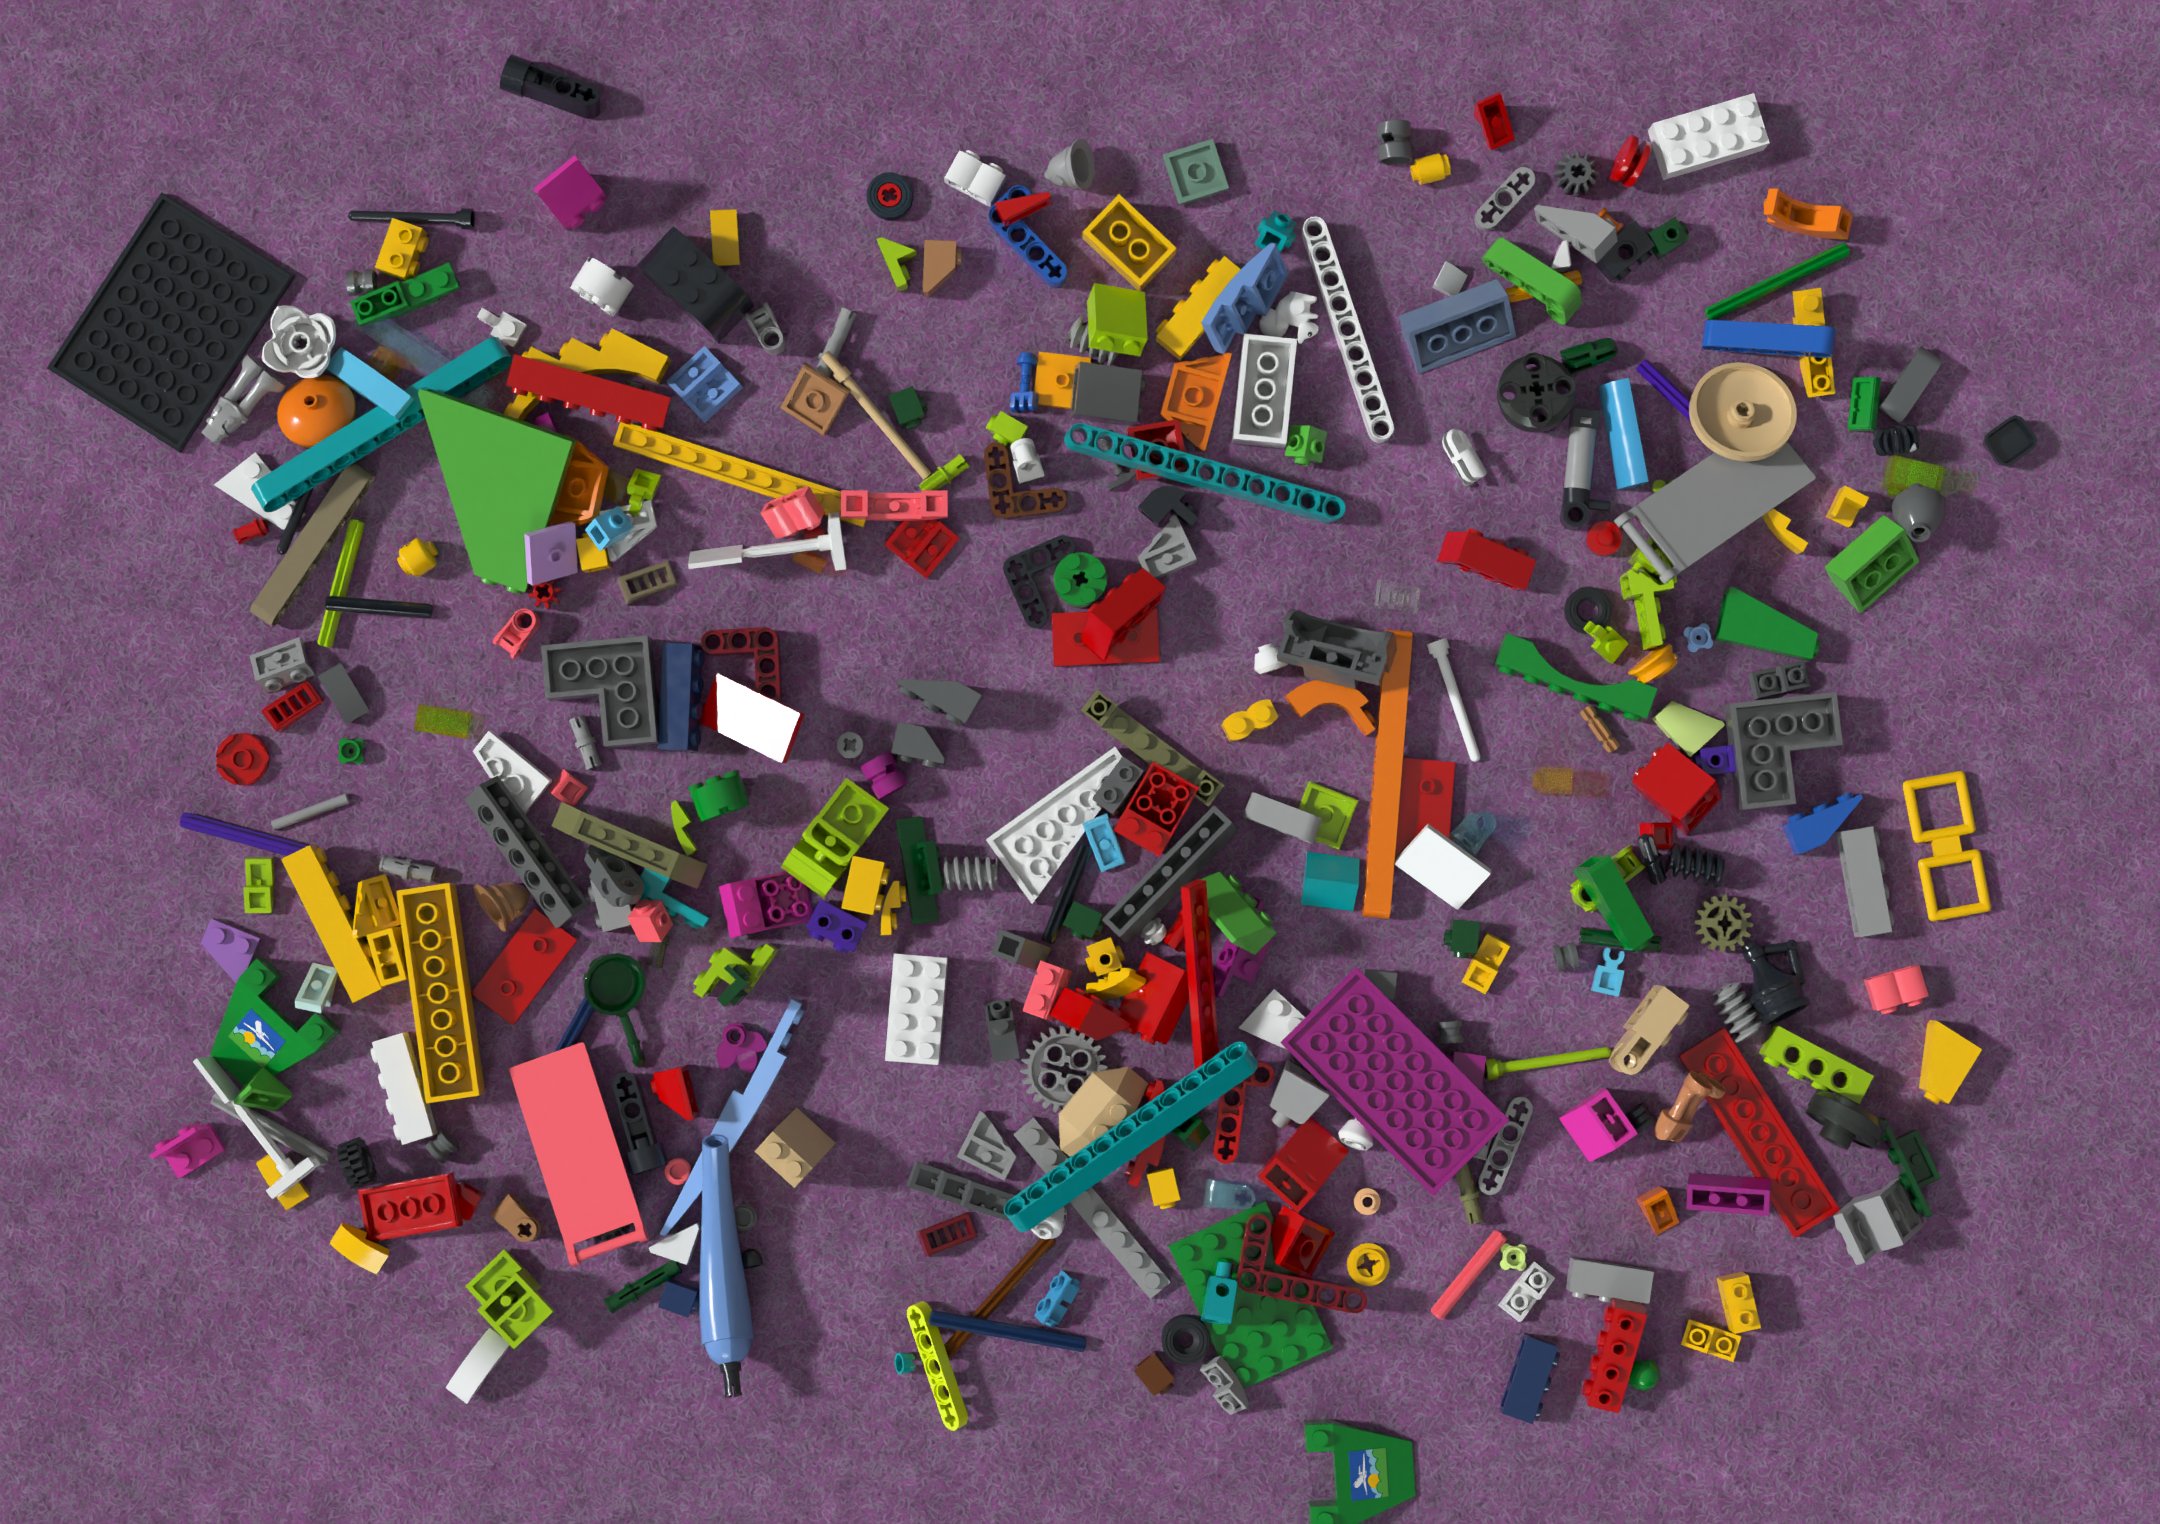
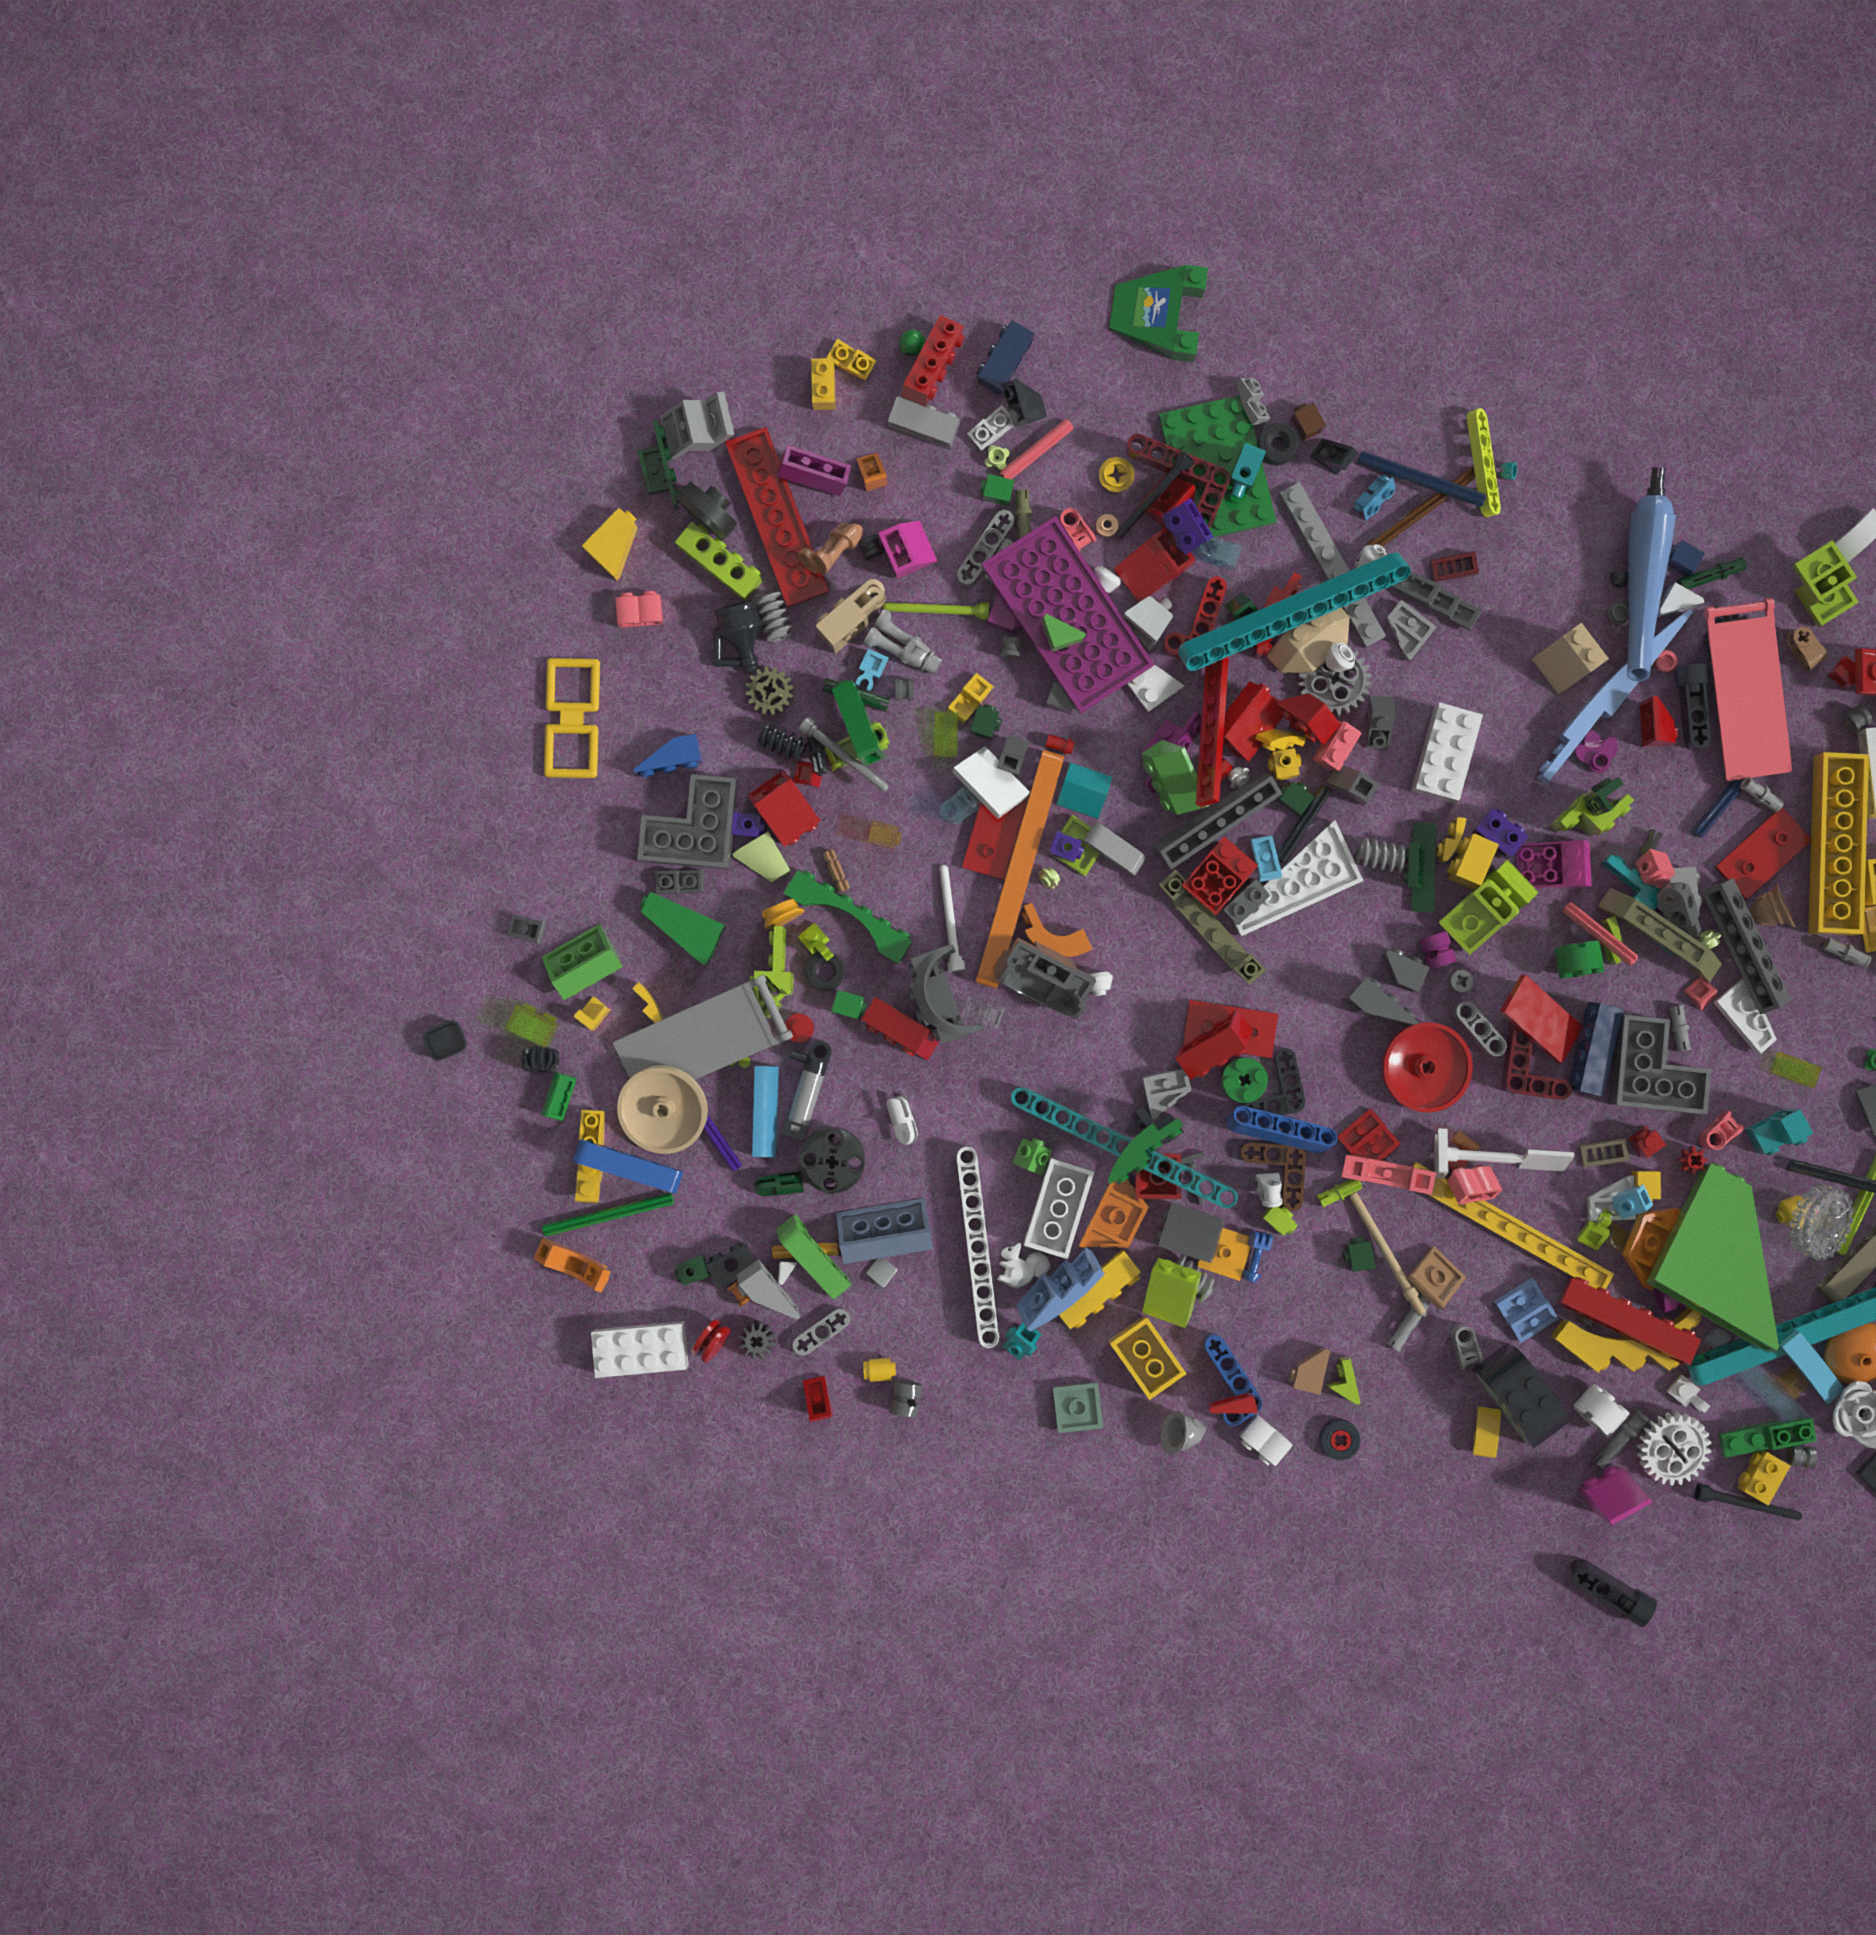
camera: 170 degrees left, 0 degrees up
(388, 549) = (1821, 1221): none -> clear piece
(454, 646) = (1781, 1128): none -> teal brick
(524, 242) = (1690, 1434): none -> white gear
(539, 1034) = (1761, 794): none -> light grey pin
(551, 553) = (1684, 1191): lavender plate -> none
(563, 269) = (1628, 1432): none -> dark grey pin
(571, 852) = (1709, 938): none -> yellowish green plate
(602, 602) = (1646, 1142): none -> red brick
(613, 988) = (1694, 819): dark green piece -> none
(700, 831) = (1600, 934): none -> coral axle
(809, 685) = (1489, 1032): none -> light grey beam
(847, 634) = (1446, 1073): none -> red dish
(1015, 536) = (1290, 1126): none -> blue beam
(1065, 1093) = (1340, 657): none -> white cone
(1117, 1338) = (1333, 455): none -> black slope
(1163, 1187) = (1271, 568): yellow brick -> none
(1192, 464) = (1135, 1153): none -> green slope
(1242, 723) = (1119, 936): yellow brick -> none
(1277, 1210) = (1187, 526): none -> dark purple brick
(1298, 1286) = (1182, 462): none -> black piece
(1350, 811) = (1058, 851): none -> dark purple brick
(1351, 770) = (1049, 877): none -> yellowish green plate
(1369, 929) = (1060, 744): none -> red pin
(1400, 1052) = (1060, 634): none -> bright green slope
(1401, 1186) = (1078, 529): none -> coral piece
(1423, 904) = (1013, 754): none -> dark grey brick
(1454, 601) = (936, 999): none -> dark grey piece
(1495, 1324) = (1023, 403): none -> black slope
(1505, 914) = (946, 734): none -> clear neon green plate
(1505, 1216) = (997, 490): none -> green brick
(1552, 575) = (849, 1005): none -> green brick
(1562, 1004) = (914, 653): none -> light grey piece
(1668, 886) = (810, 728): none -> light grey piece
(1703, 632) = (743, 934): light blue plate -> none
(1864, 881) = (646, 701): light grey brick -> none
(1910, 385) = (516, 1105): dark grey beam -> none
(1919, 511) = (535, 994): dark grey piece -> none
(1943, 587) = (527, 929): none -> flat silver slope

